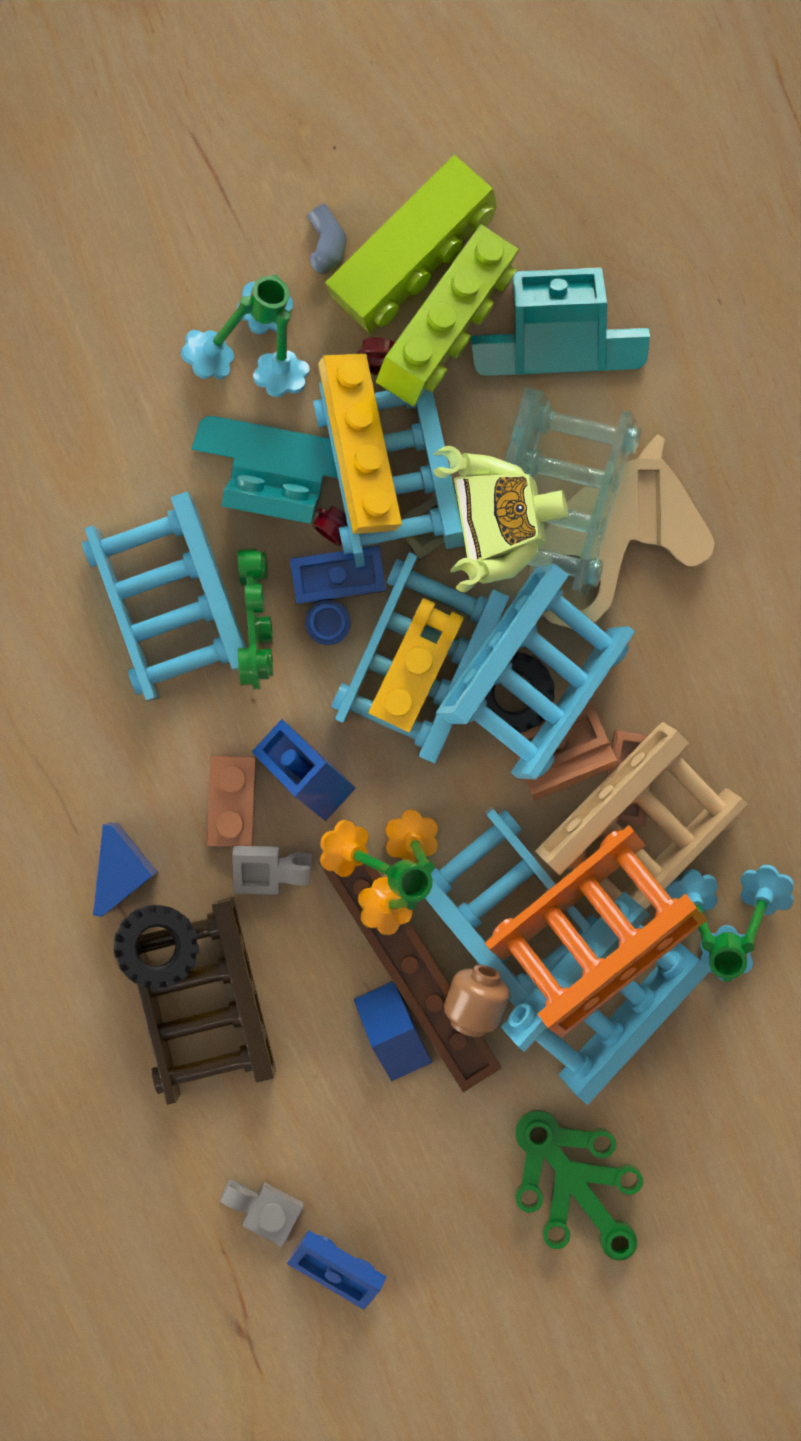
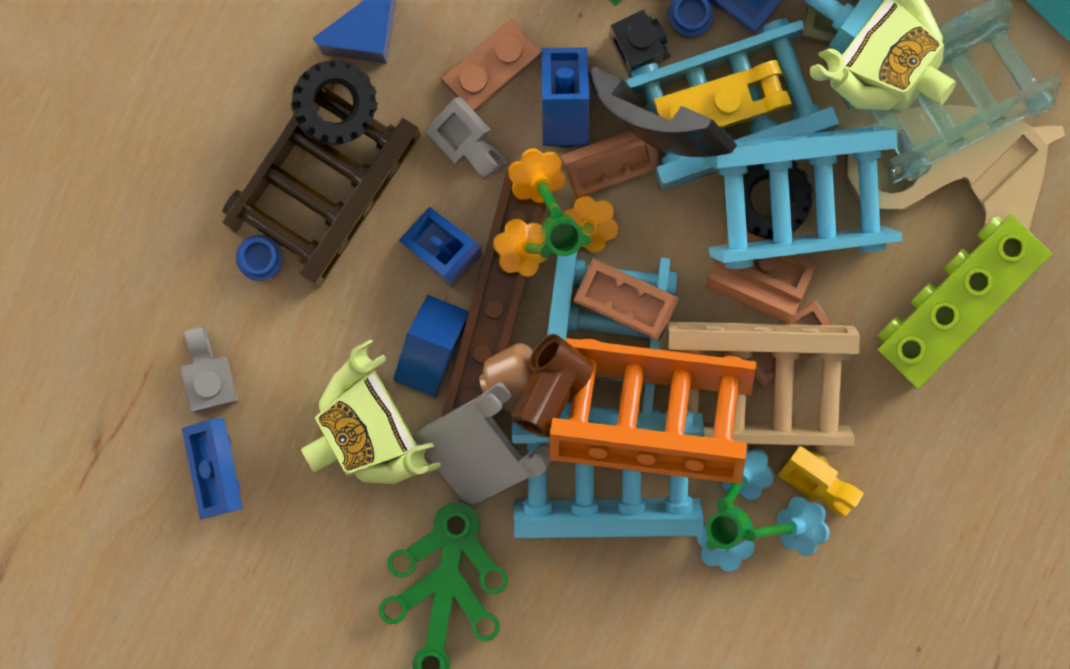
camera: 55 degrees right, 5 degrees down
(215, 1096) = (259, 257): none -> blue plate
(315, 679) = (639, 41): none -> black brick
(329, 960) = (442, 246): none -> blue slope
(381, 781) = (608, 163): none -> nougat plate
(410, 1135) = (365, 427): none -> yellowish green torso
(418, 725) = (684, 135): none -> black slope
(493, 869) = (626, 299): none -> nougat plate
(502, 1077) = (476, 452): none -> light grey flag
(505, 975) = (557, 374): none -> reddish brown piece
(717, 628) = (963, 300): none -> lime brick
(740, 850) = (816, 479): none -> yellow plate

